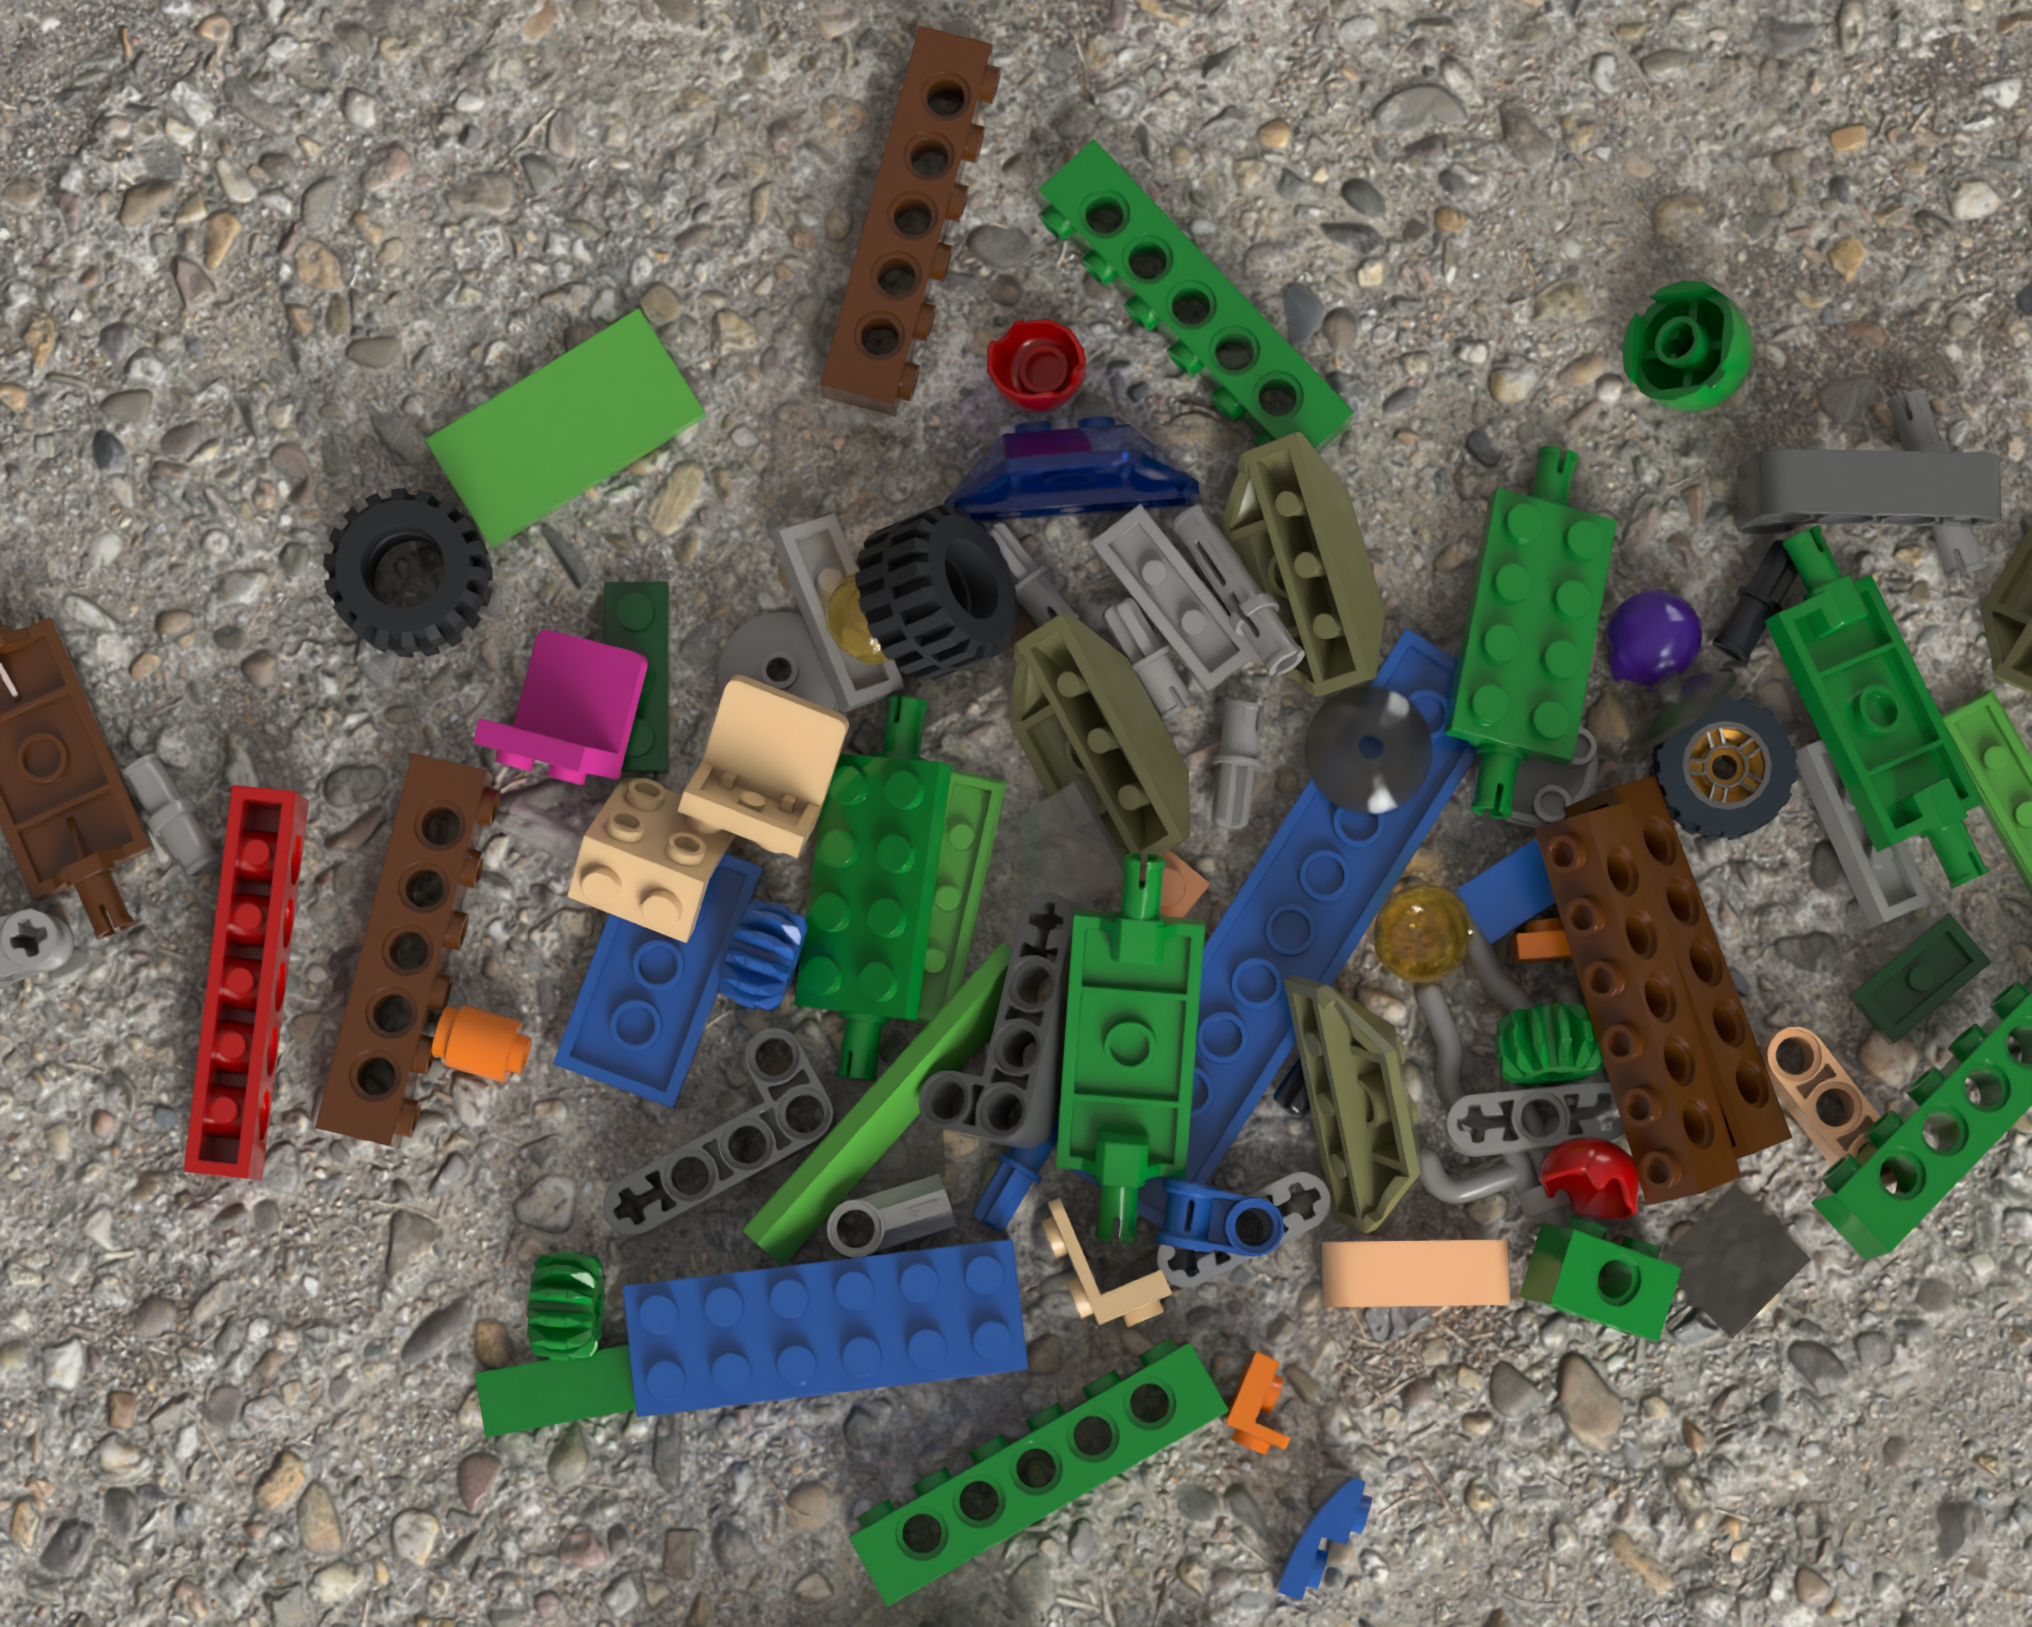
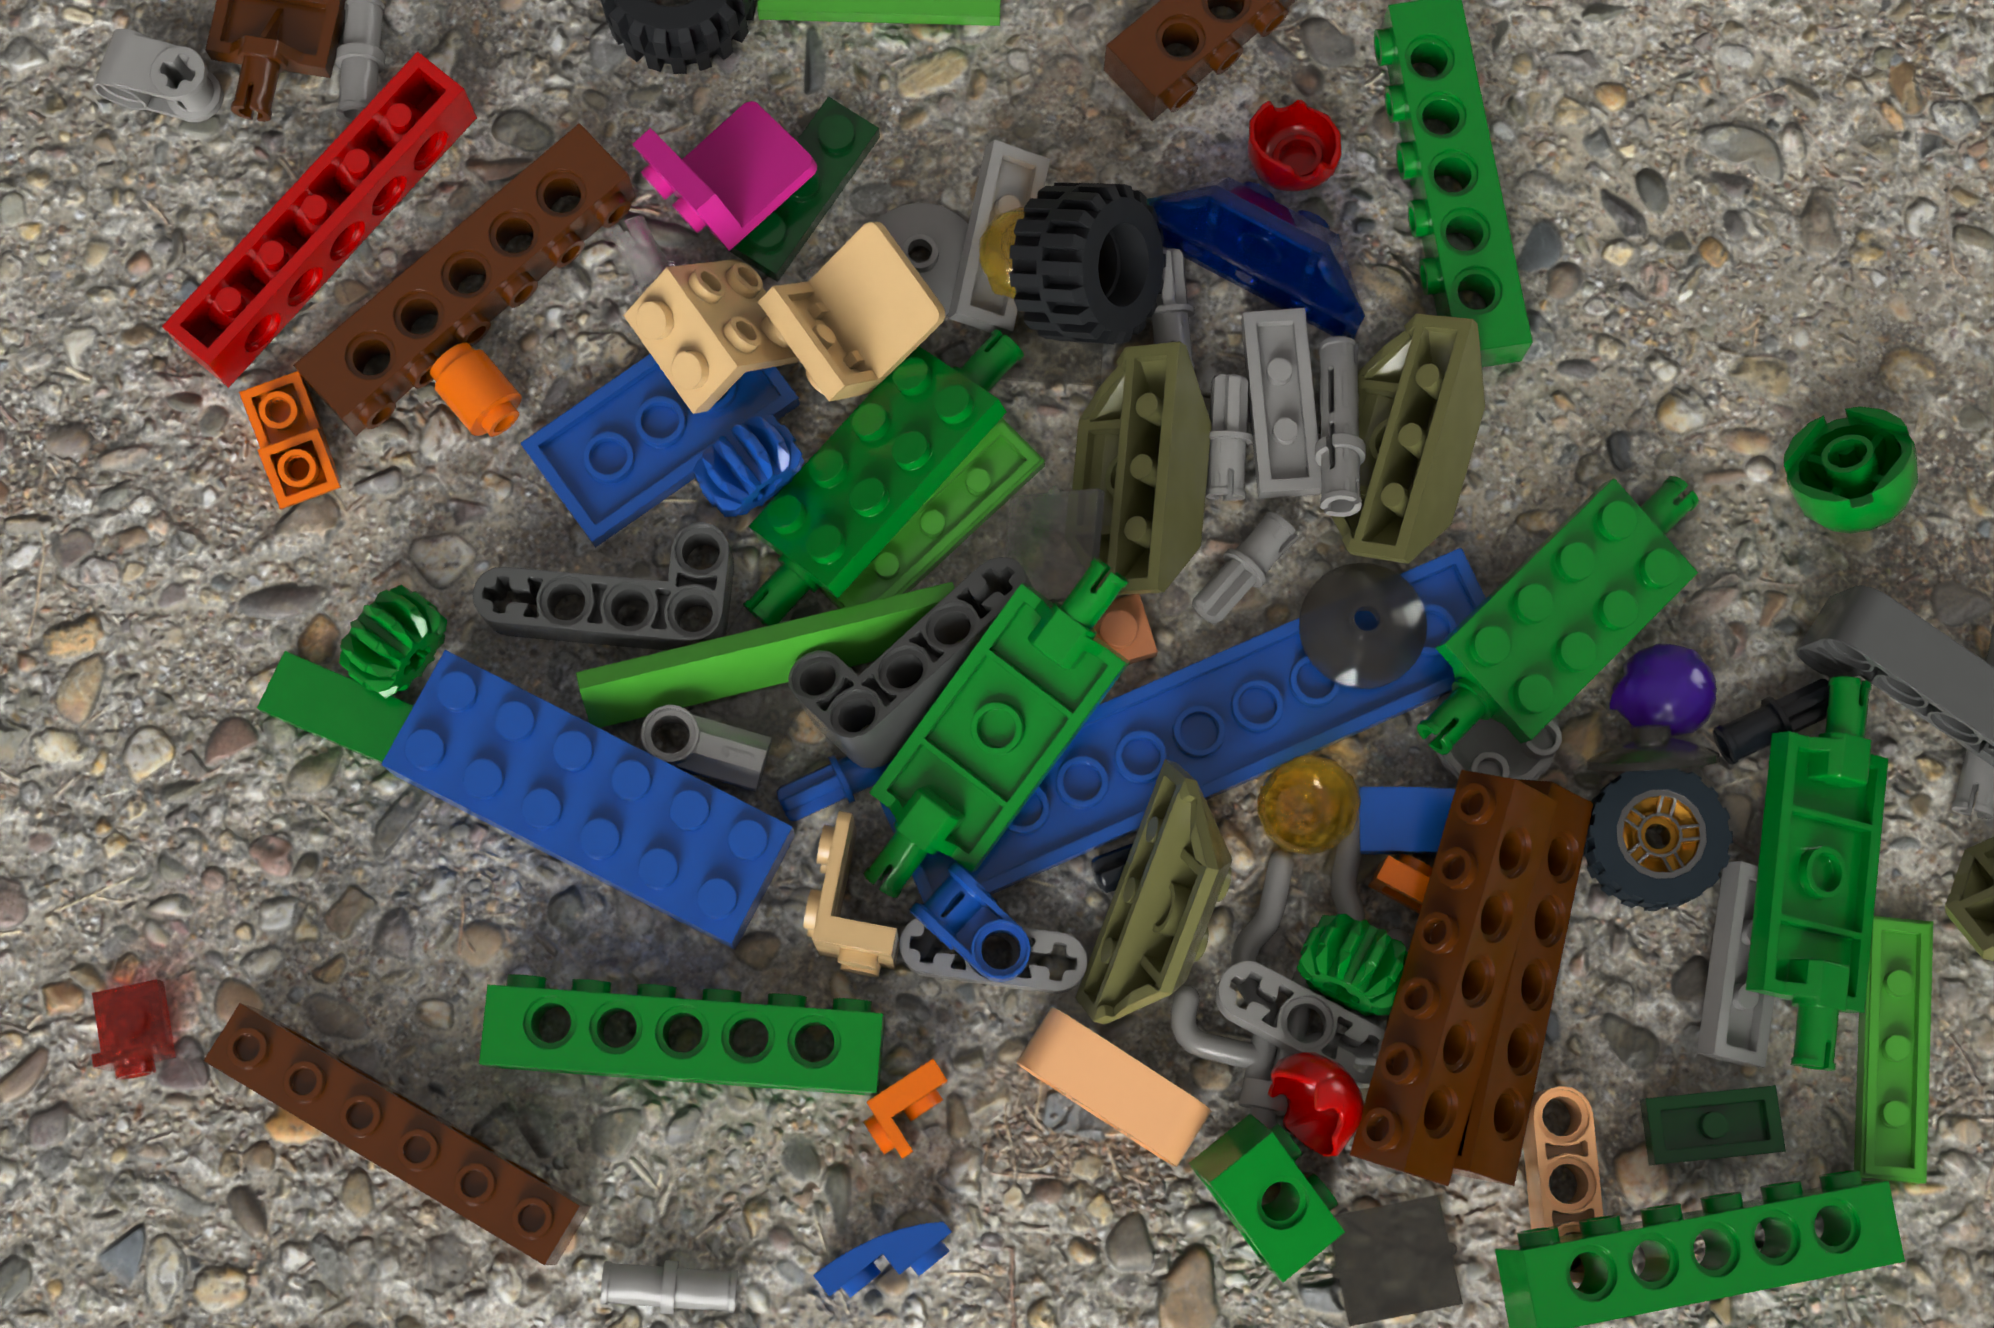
camera: 30 degrees right, 5 degrees down
(349, 1190) = (290, 439): none -> orange slope

